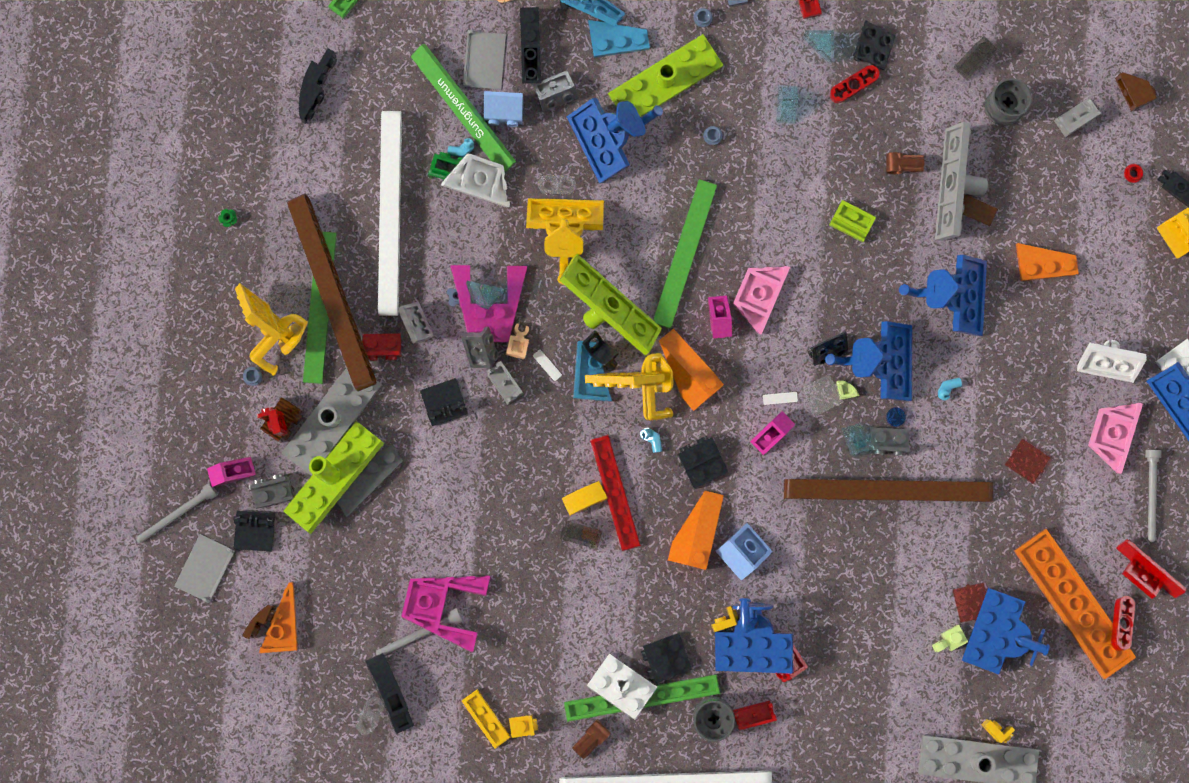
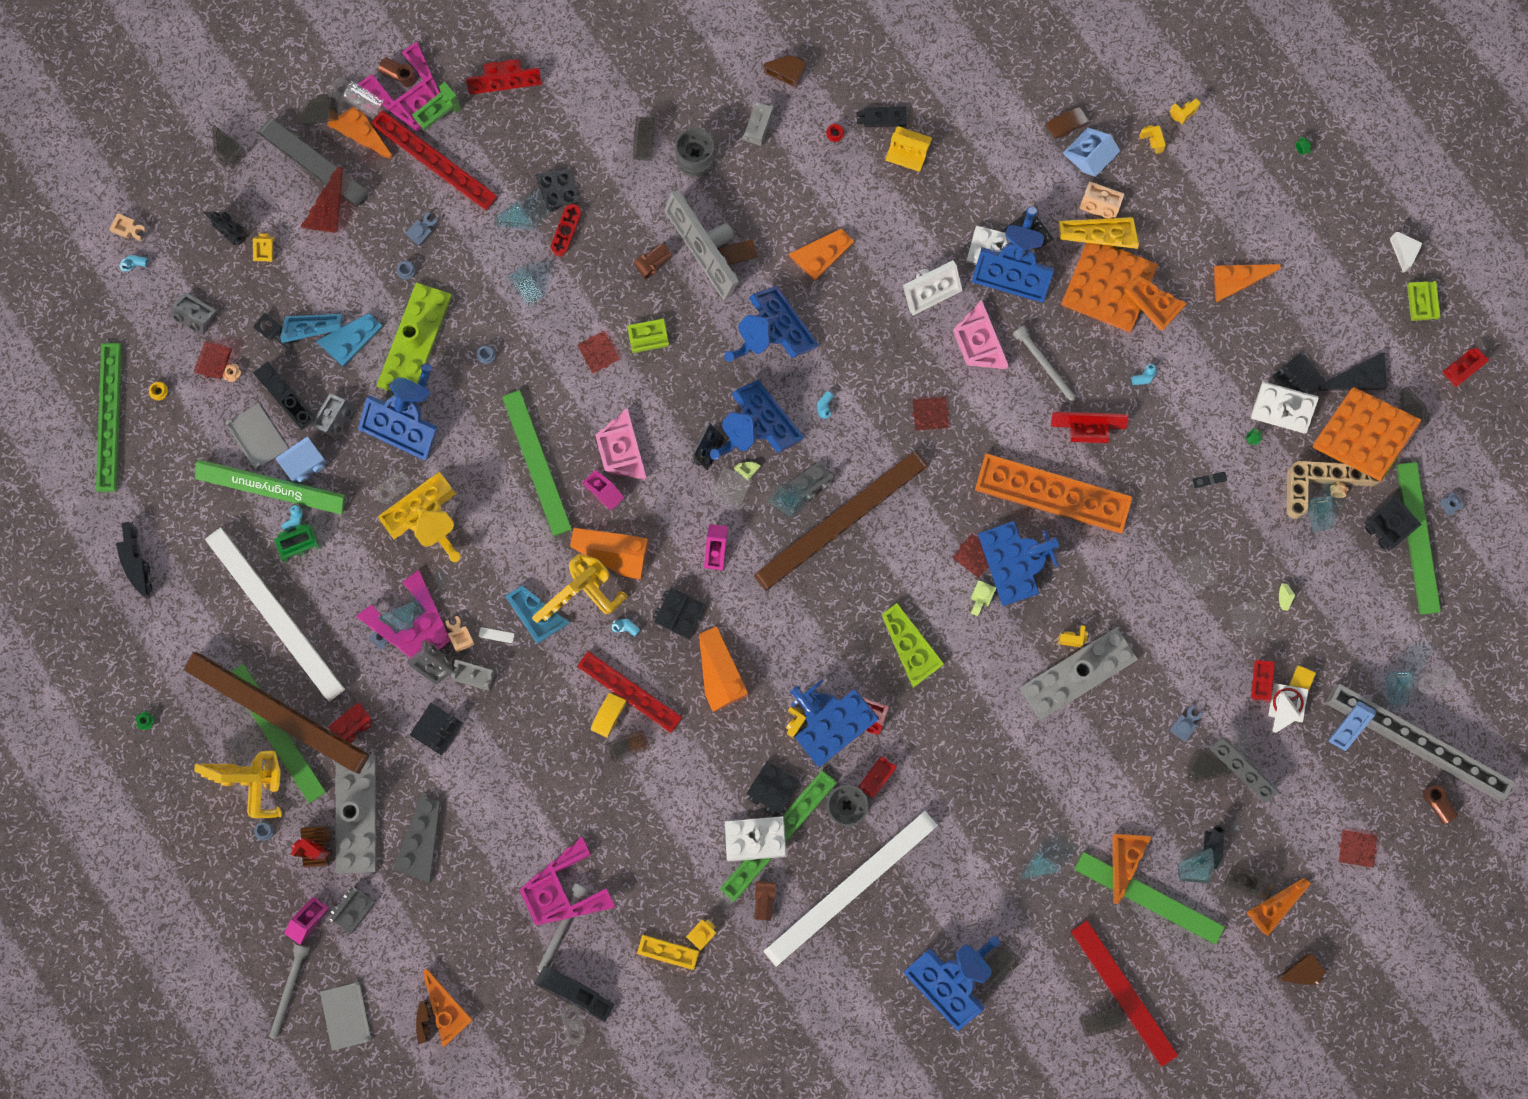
camera: 35 degrees left, 5 degrees down
(254, 531) = (362, 953): black hinge -> none
(332, 476) = (392, 858): lime plate -> none
(415, 322) = (363, 683): flat silver bracket -> none
(479, 179) = (325, 531): white wing -> none
(601, 351) = (530, 589): black bracket -> none
(609, 305) = (507, 548): lime plate -> none
(744, 551) = (767, 656): light blue slope -> none
(780, 398) = (700, 516): white sticker -> none
(802, 203) = (598, 352): none -> clear red piece
(862, 641) = (913, 650): none -> lime wing
(895, 417) = (802, 459): clear blue tile -> none
(1117, 629) = (1101, 487): red beam -> none

